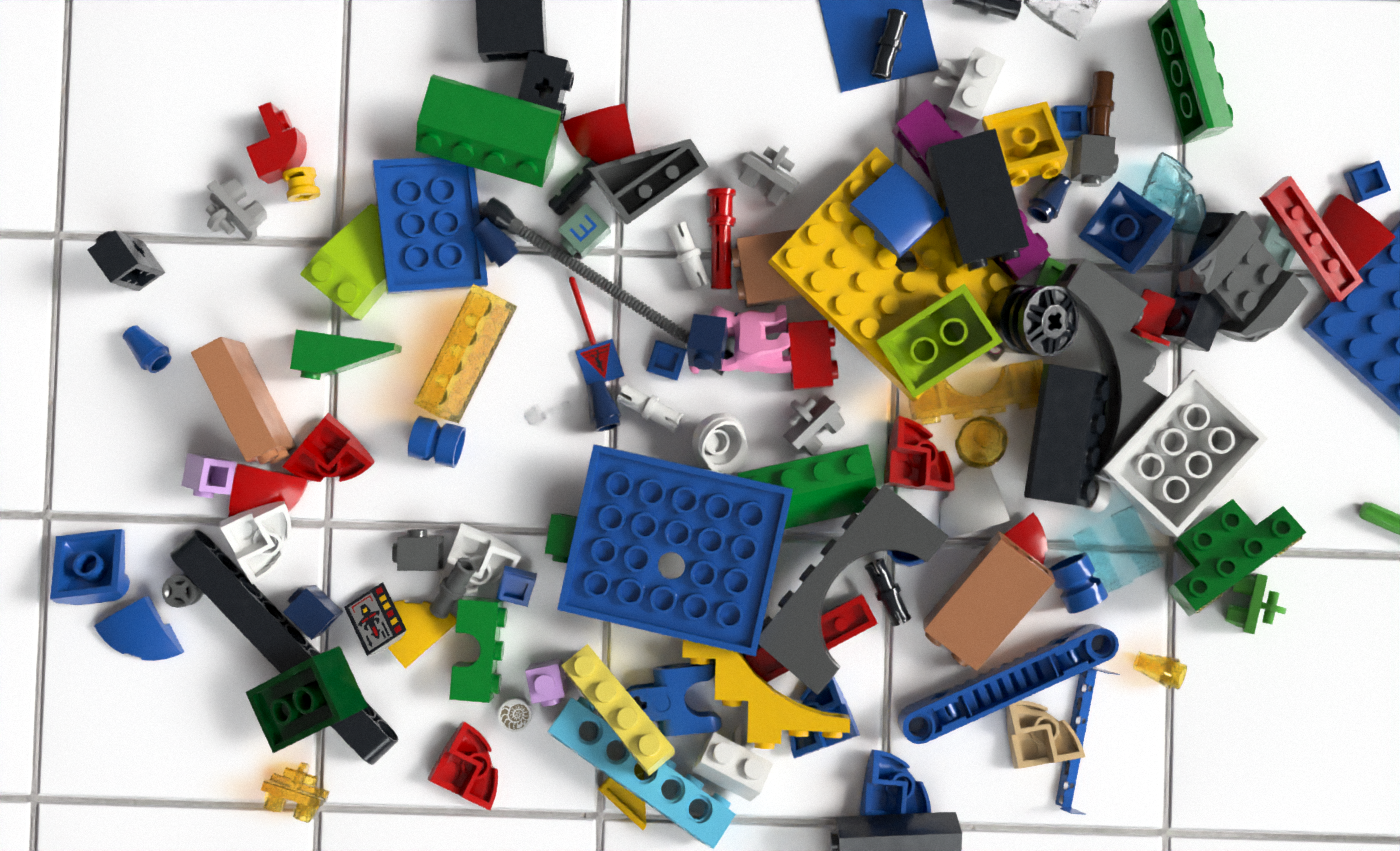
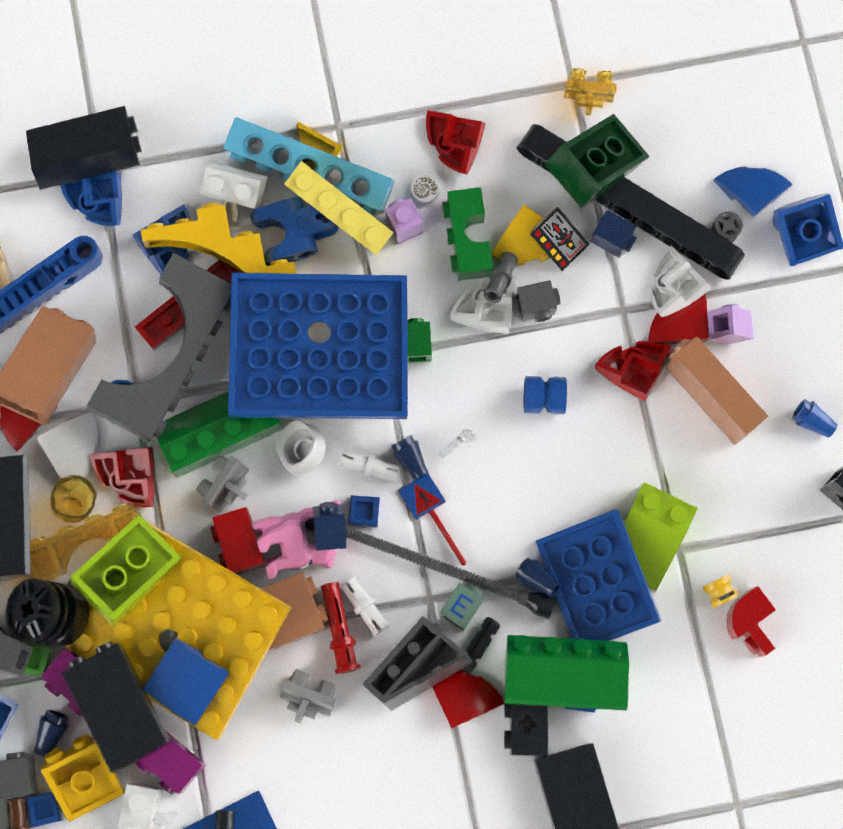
camera: 165 degrees right, 10 degrees down
(226, 198) = (783, 563): light grey hips -> none
(332, 354) = (658, 449): green slope -> none
(465, 354) = (538, 474): clear yellow brick -> none
(516, 586) = (448, 291): blue tile -> none
(887, 592) = (131, 356): black pin -> none

